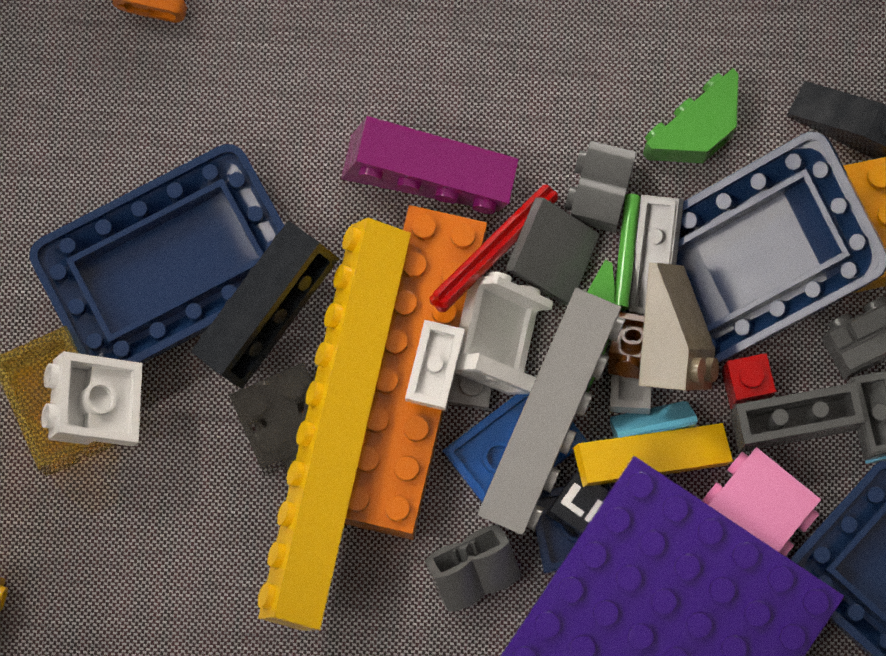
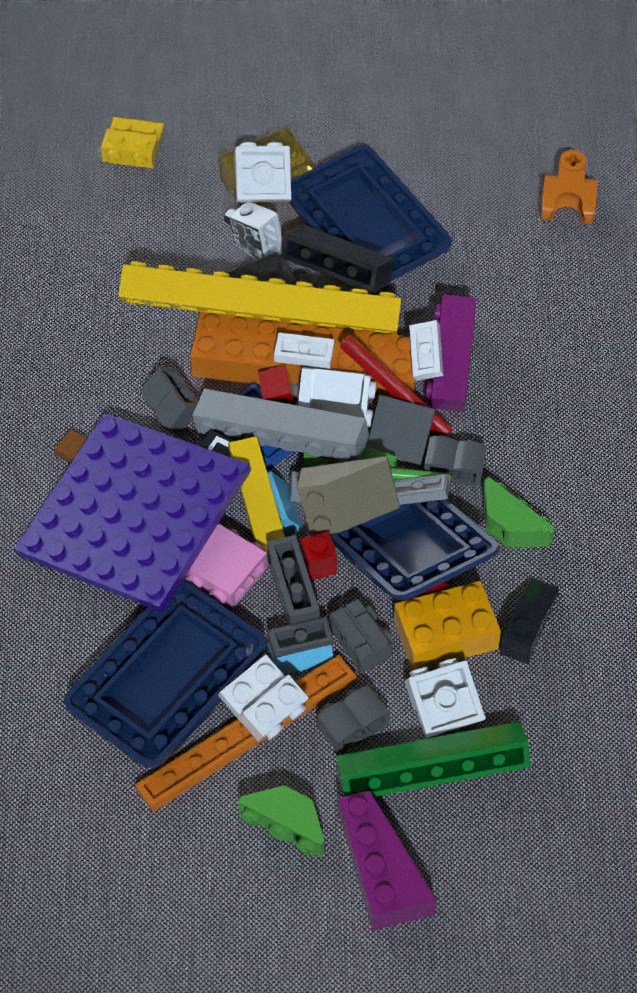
camera: 85 degrees right, 20 degrees down
(182, 417) = (255, 230): none -> white torso
(446, 196) = (426, 350): none -> white plate
(475, 414) = (277, 385): none -> red brick

